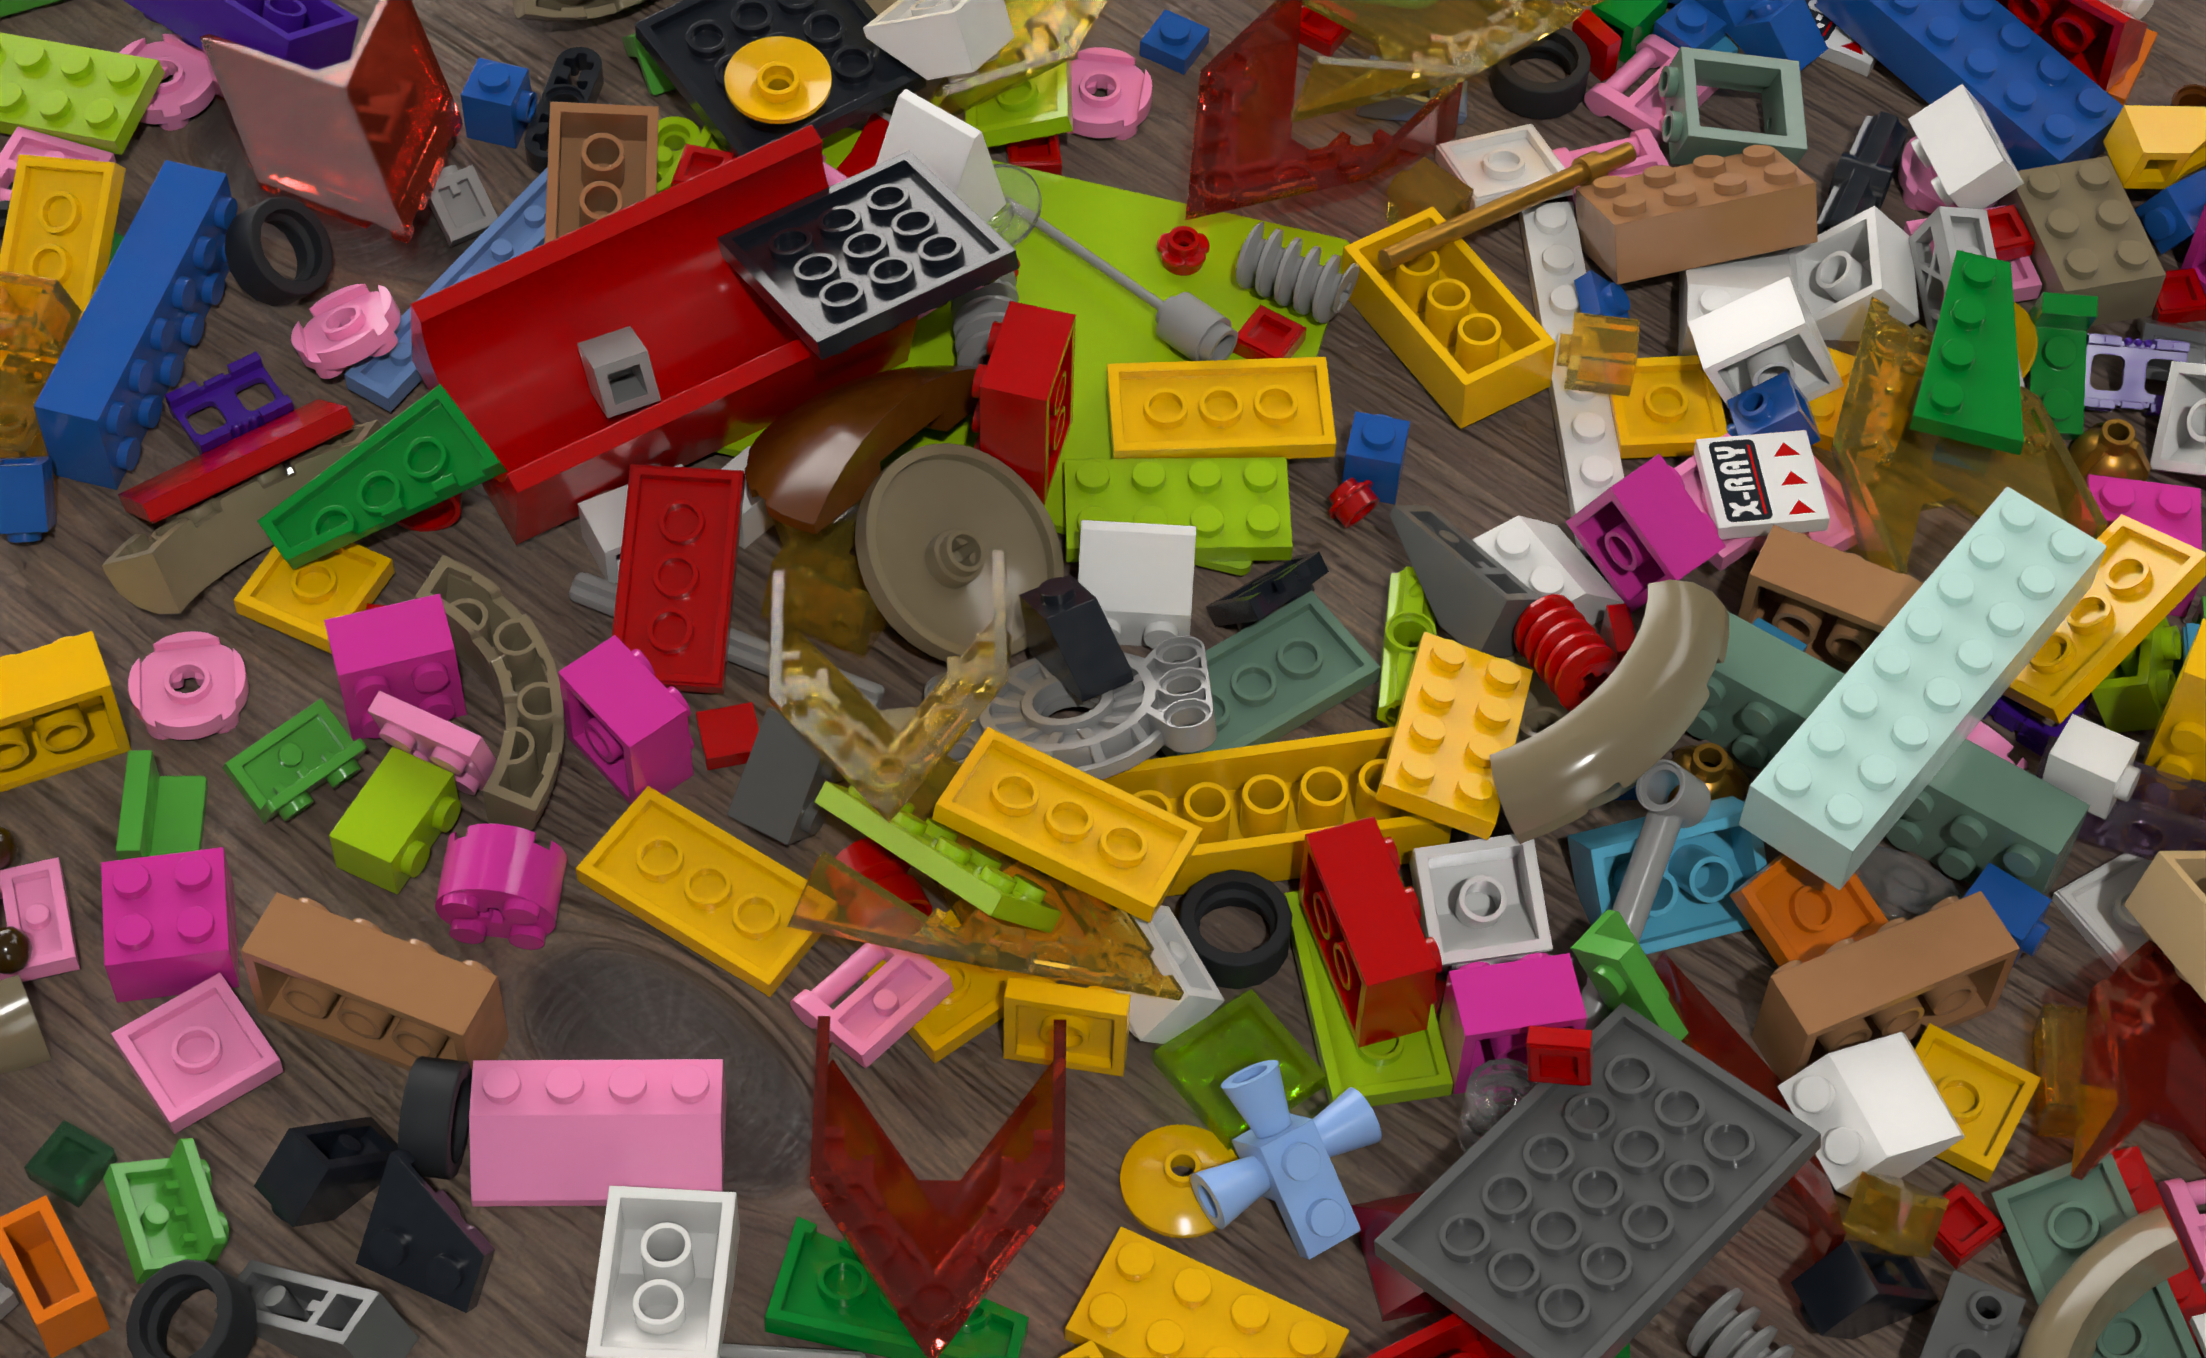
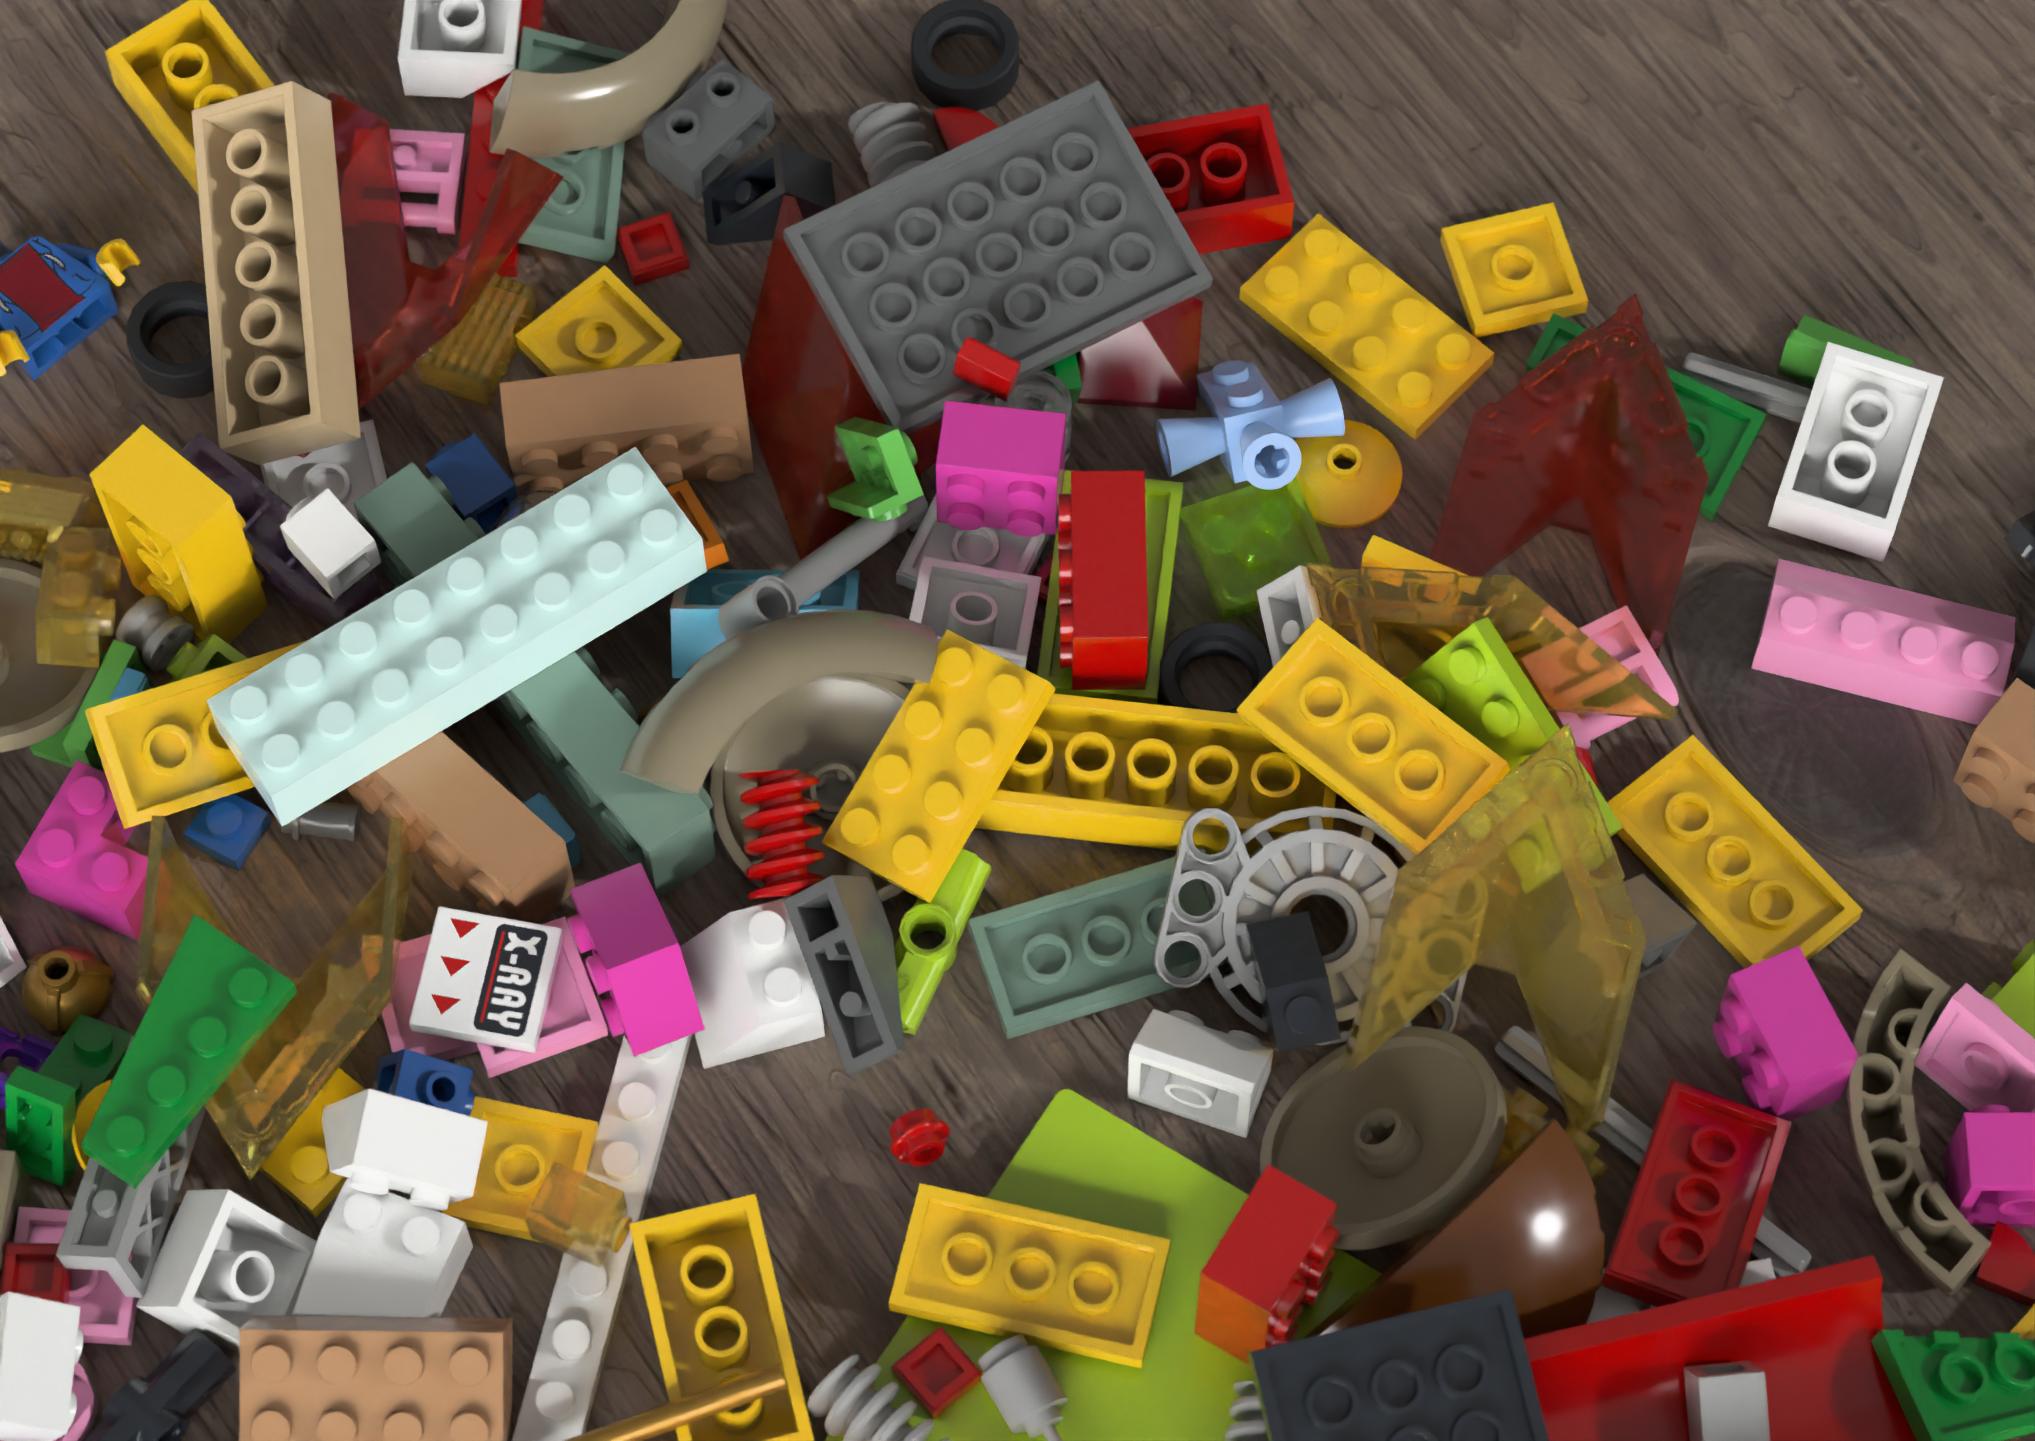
camera: 160 degrees left, 10 degrees up
(500, 886) = (1946, 890): dark pink brick -> none
(727, 734) = (1669, 1042): red tile -> none
(1233, 502) = (1117, 1166): lime plate -> none
(1268, 591) = (1055, 1033): black wing -> none
(1377, 453) = (875, 1179): blue brick -> none
(1601, 297) = (535, 1316): blue plate -> none
(1618, 629) = (705, 886): red tile -> none
(1872, 1110) = (699, 310): white slope -> none
(1895, 1214) = (718, 234): clear yellow brick -> none

